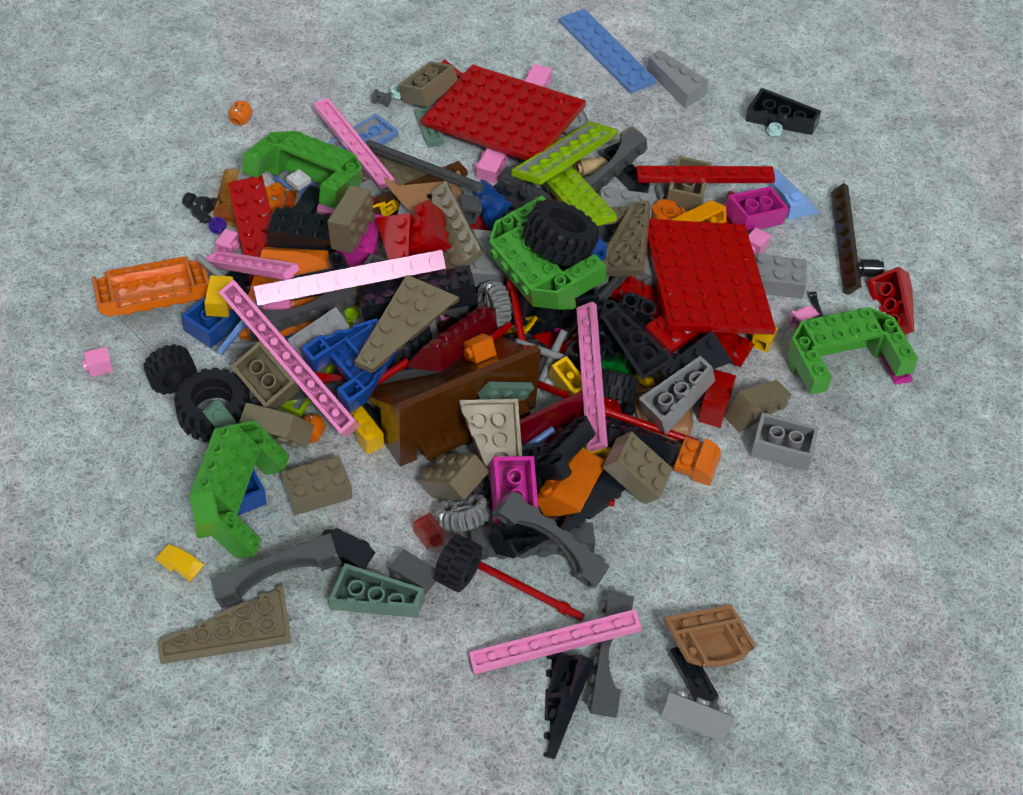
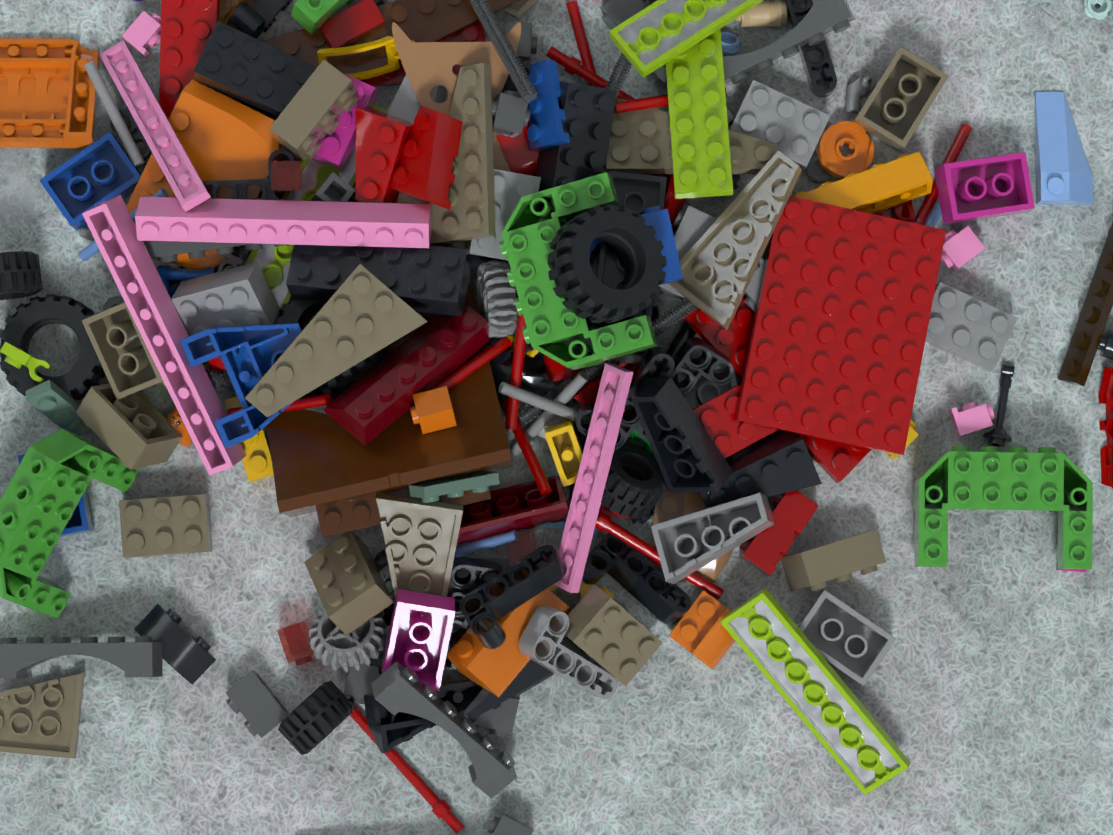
camera: 20 degrees right, 35 degrees up
(194, 397) = (18, 357): none -> lime plate
(214, 303) = (100, 168): yellow brick -> none
(343, 256) = (286, 175): none -> clear red brick
(375, 594) = (198, 725): sand green wedge -> none
(612, 485) = (549, 649): none -> light grey beam
(705, 174) = (927, 104): red plate -> none
(784, 469) = (815, 692): none -> lime piece

